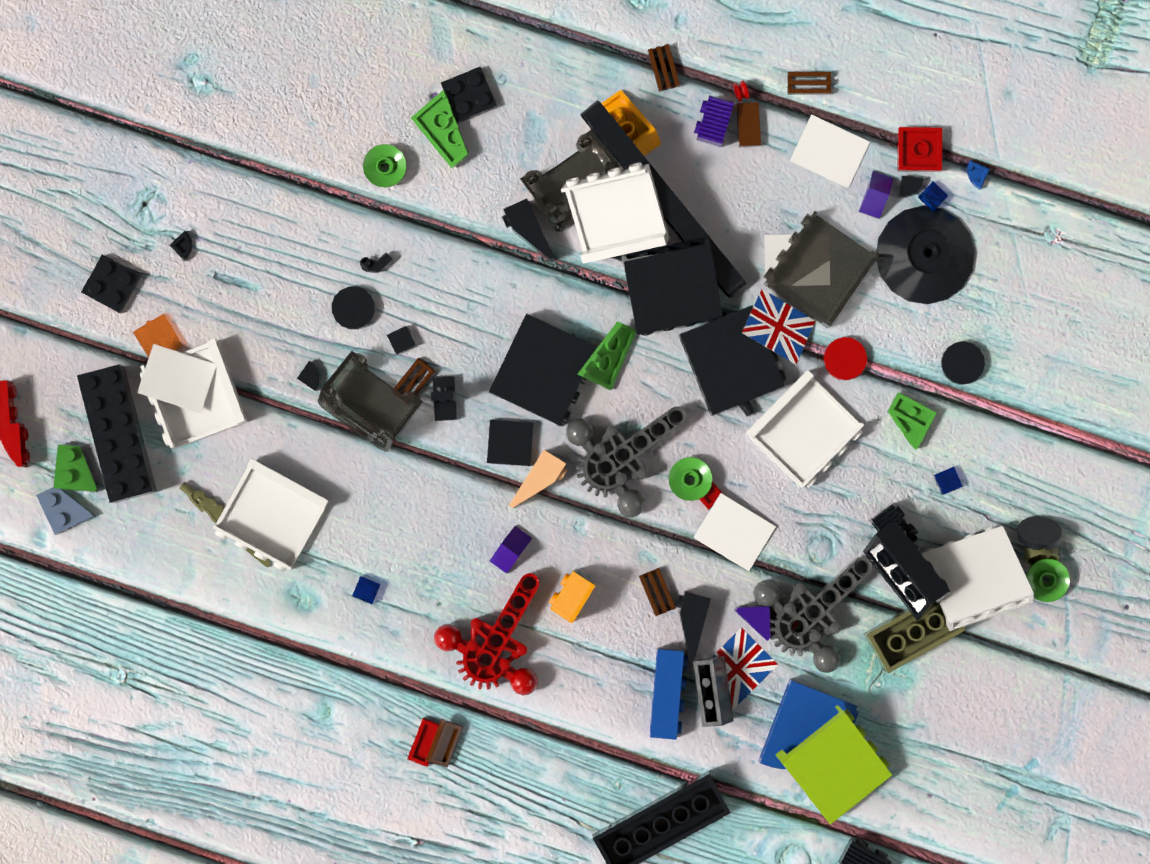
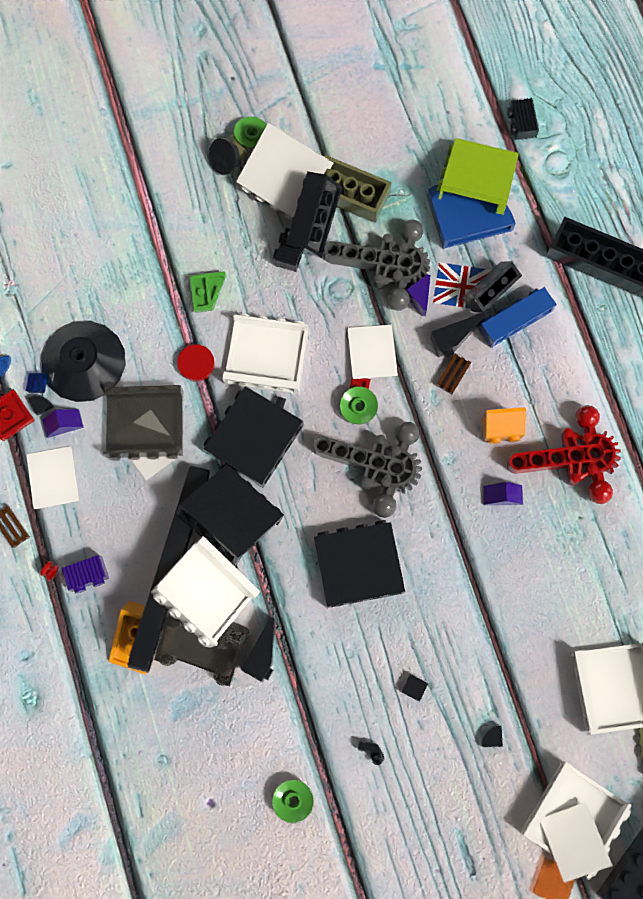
camera: 120 degrees left, 10 degrees down
(353, 308) = (418, 743): black tile -> none
(366, 590) = (612, 576): clear blue tile -> none
(368, 402) = (479, 676): clear smoke windscreen -> none
(424, 366) = (431, 647): reddish brown tile -> none
(441, 129) = (233, 777): bright green wing -> none
(444, 398) = (433, 622): black bracket -> none
(469, 94) = (191, 776): black plate -> none
(510, 443) = (428, 551): black tile -> none
(542, 475) = (434, 509): light nougat slope -> none
(609, 356) = (318, 523): bright green wing -> none
(659, 50) = (58, 654): reddish brown tile -> none
(748, 124) = (71, 548): reddish brown tile -> none
(778, 326) = (206, 421): sticker -> none
(947, 480) = (231, 239): clear blue tile -> none
(962, 363) = (142, 284): black tile -> none

